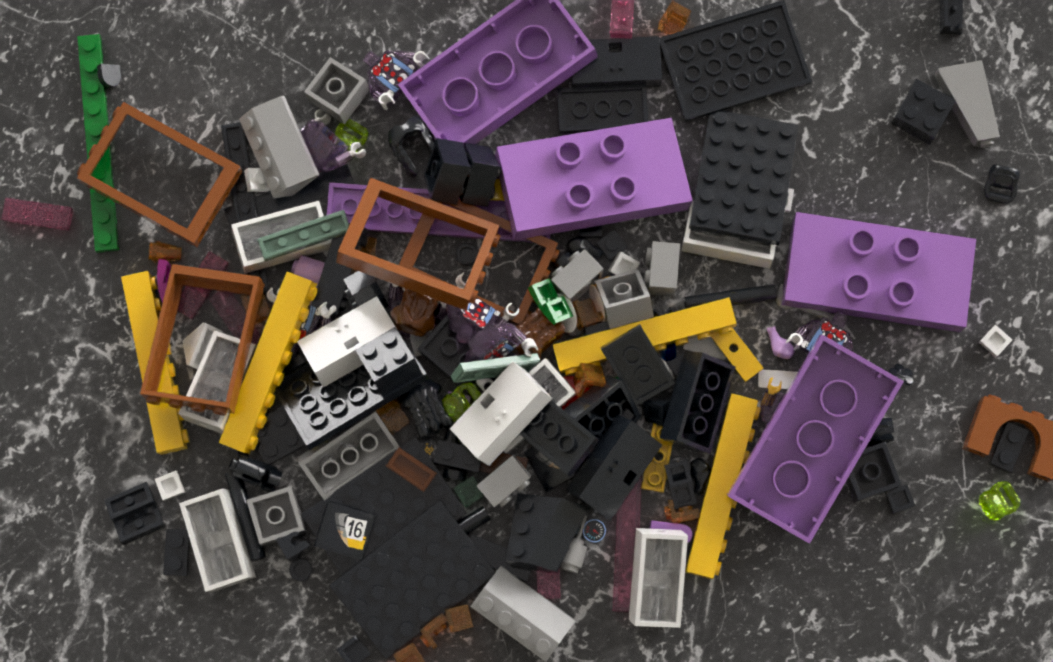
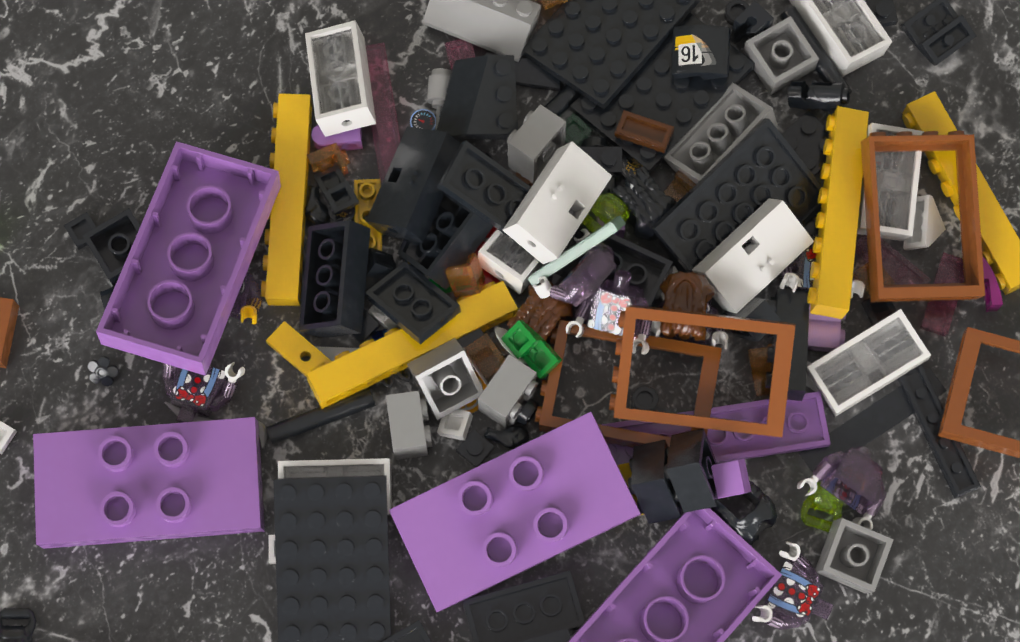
camera: 165 degrees right, 5 degrees down
(164, 251) = (1001, 319): clear orange cone -> none
(170, 485) = (908, 65): white plate -> none
(255, 180) = (916, 429): white plate -> none
(279, 147) = (903, 467): light grey slope -> none
(303, 235) = (841, 360): sand green tile -> none
(388, 361) = (702, 232): brick -> none
(418, 158) = (731, 478): none -> medium lavender panel
(779, 344) = (253, 375): lavender animal -> none
(784, 376) = (244, 338): white sticker -> none

